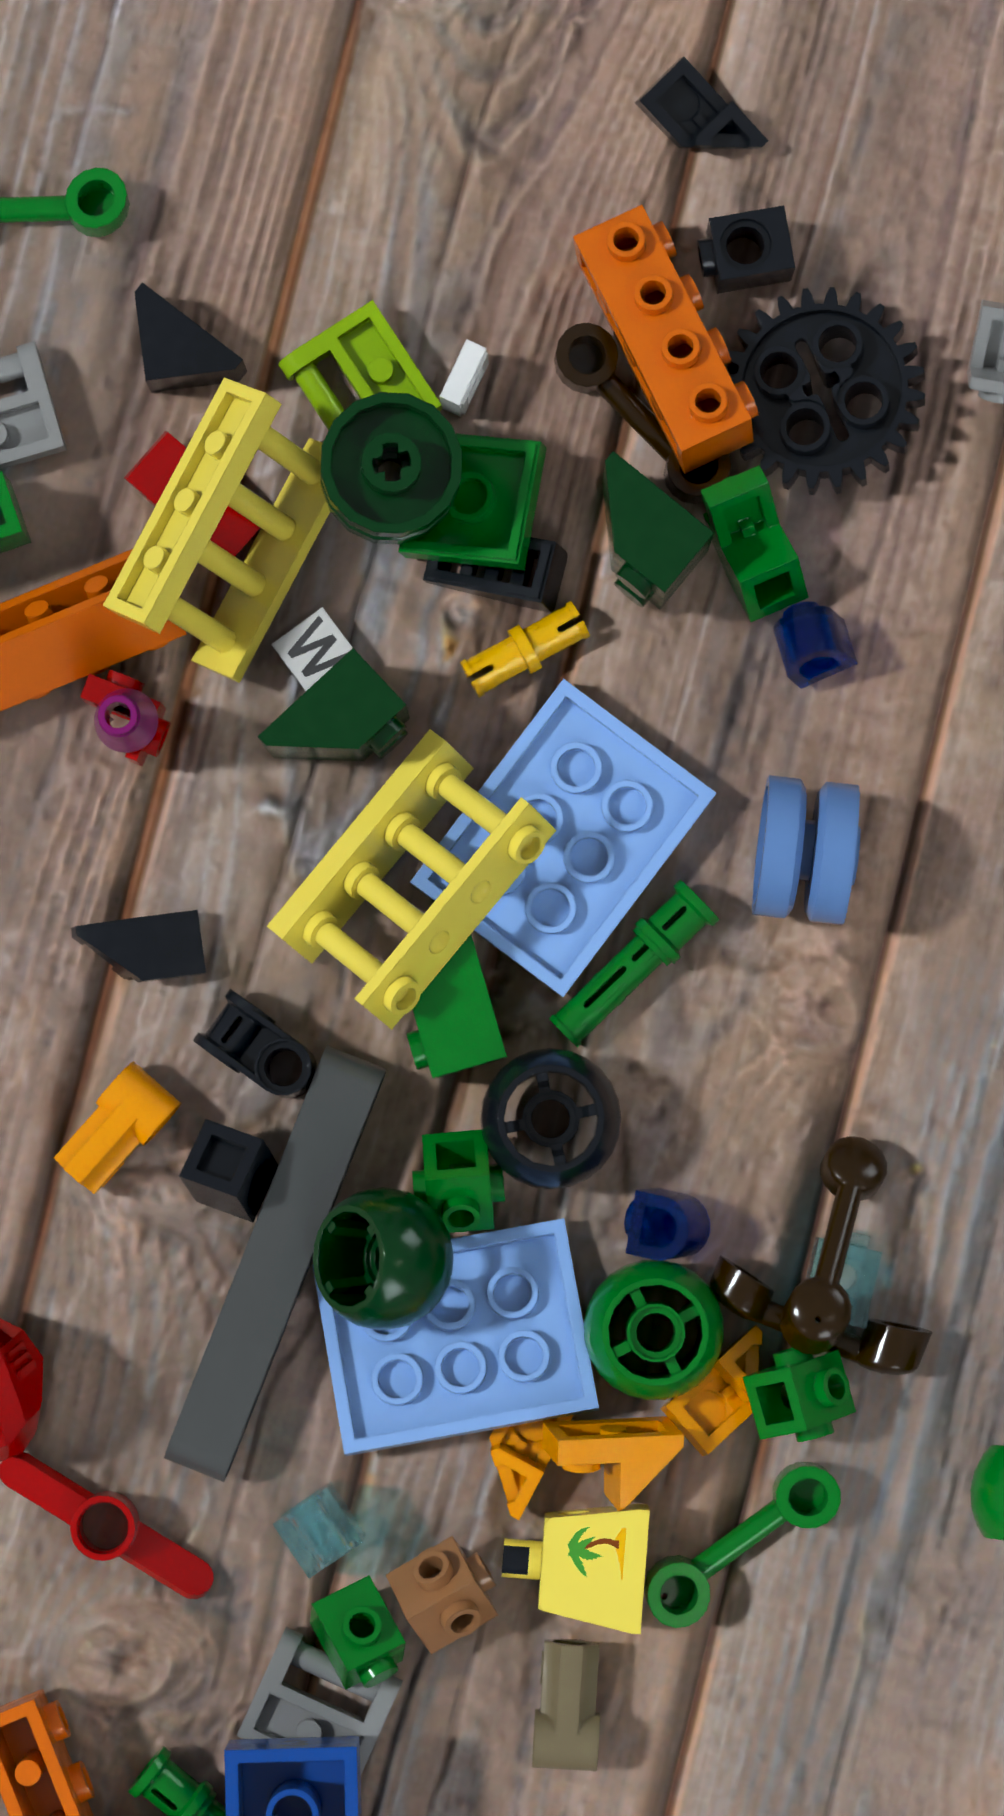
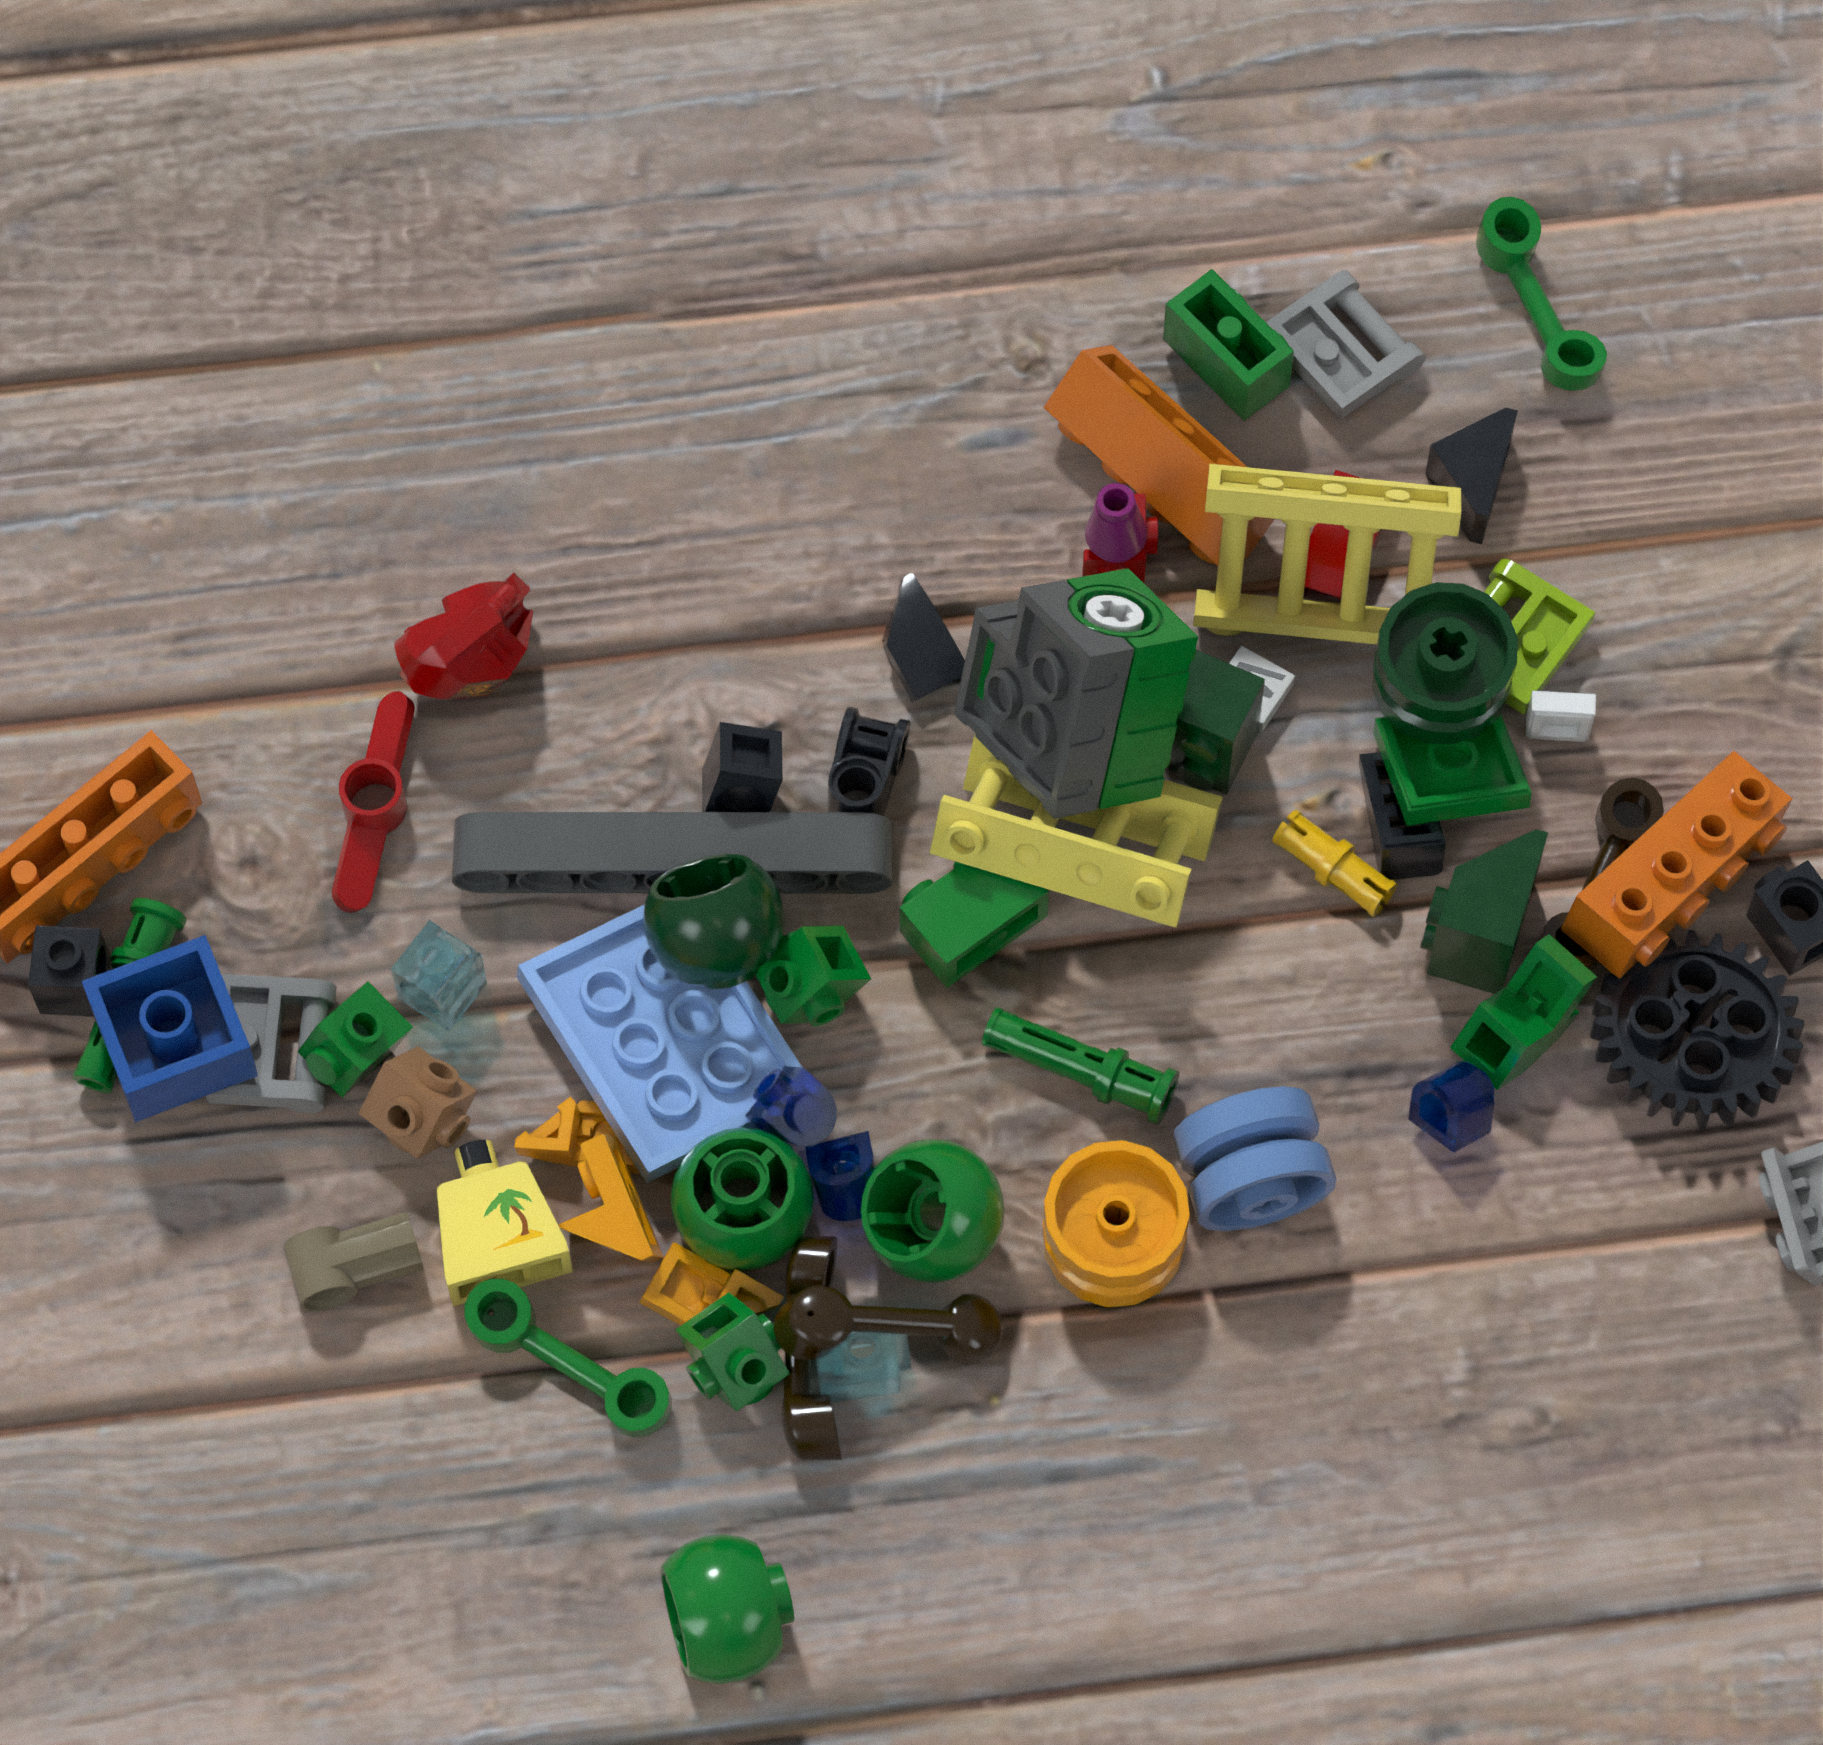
camera: 65 degrees right, 20 degrees down
(126, 1116) = (758, 681): light orange piece -> none
(296, 829) = (1079, 689): none -> dark grey piece
(539, 1064) = (895, 993): black wheel -> none
(587, 1250) = (793, 1107): none -> clear blue plate
(615, 820) = (1198, 991): light blue plate -> none
(756, 1158) = (936, 1195): none -> green wheel
(838, 971) = (1124, 1187): none -> light orange wheel

